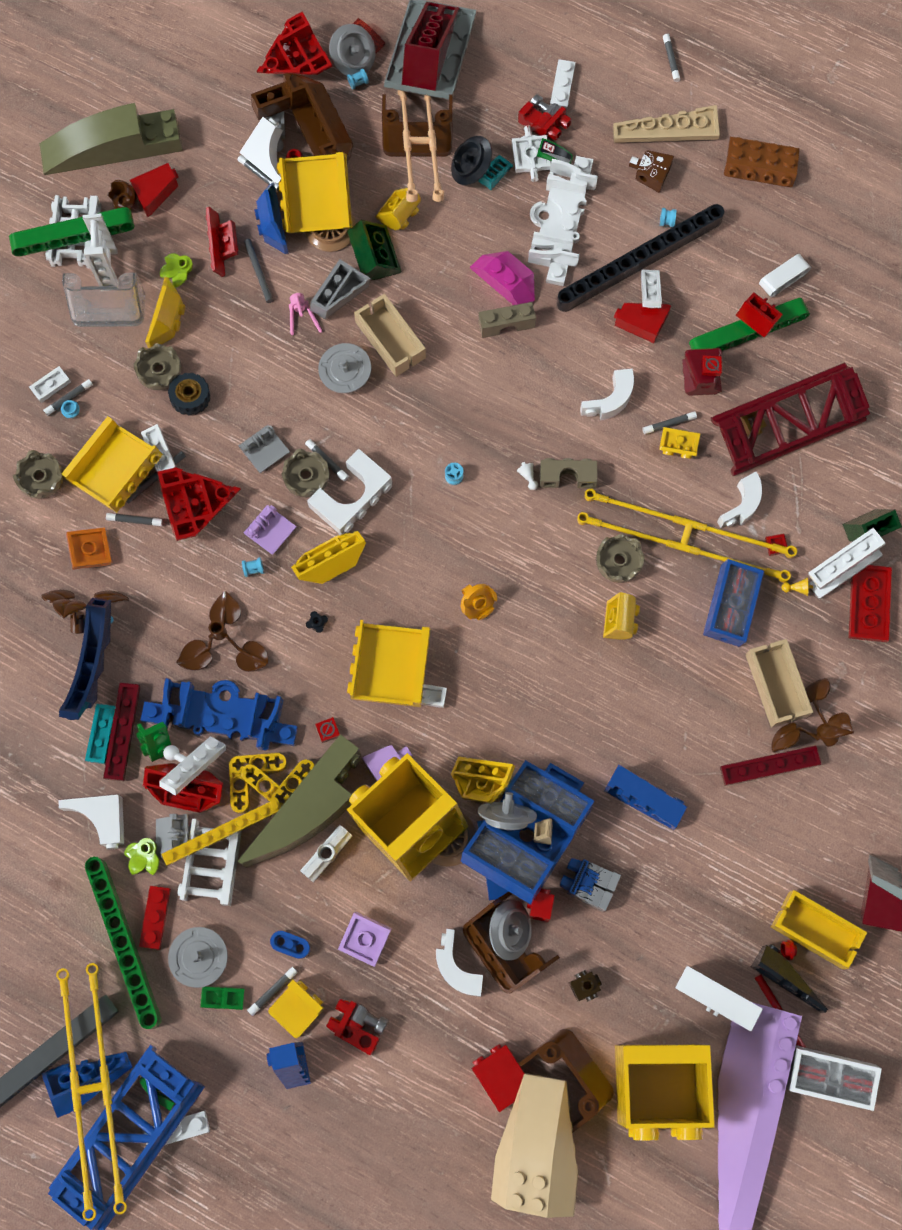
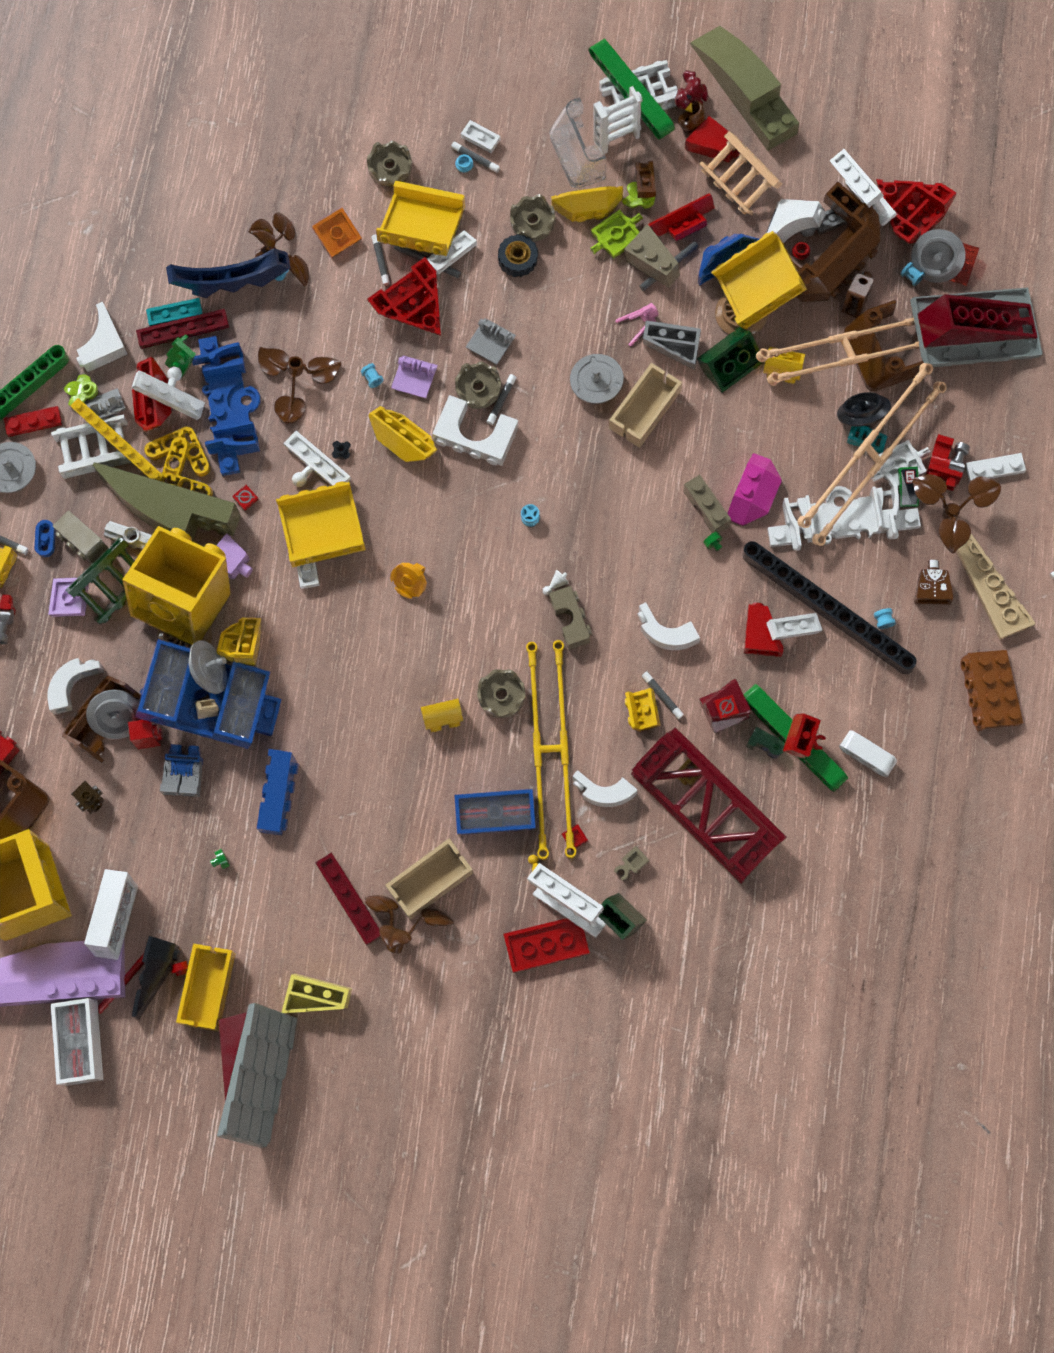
camera: 75 degrees right, 0 degrees up
(96, 186) = (692, 93): none -> dark red animal
(165, 256) = (645, 179): none -> reddish brown plate
(203, 157) = (757, 168): none -> light nougat fence
(206, 301) = (615, 233): none -> lime plate
(247, 276) = (652, 257): none -> dark tan wedge
(261, 76) = (862, 186): none -> white fence
(310, 904) = (80, 538): none -> wedge
(319, 649) = (315, 461): none -> white plate
(352, 898) = (91, 576): none -> dark green fence
(359, 125) = (861, 289): none -> reddish brown torso
(542, 327) = (713, 541): none -> green tile
(563, 238) = (879, 460): none -> light nougat bar
(571, 134) = (952, 532): none -> reddish brown plant
(692, 875) = (220, 859): none -> green tile
(748, 350) = (766, 742): none -> clear green leg
(817, 500) = (634, 861): none -> dark tan plate
(857, 827) = (312, 994): none -> light yellow wedge

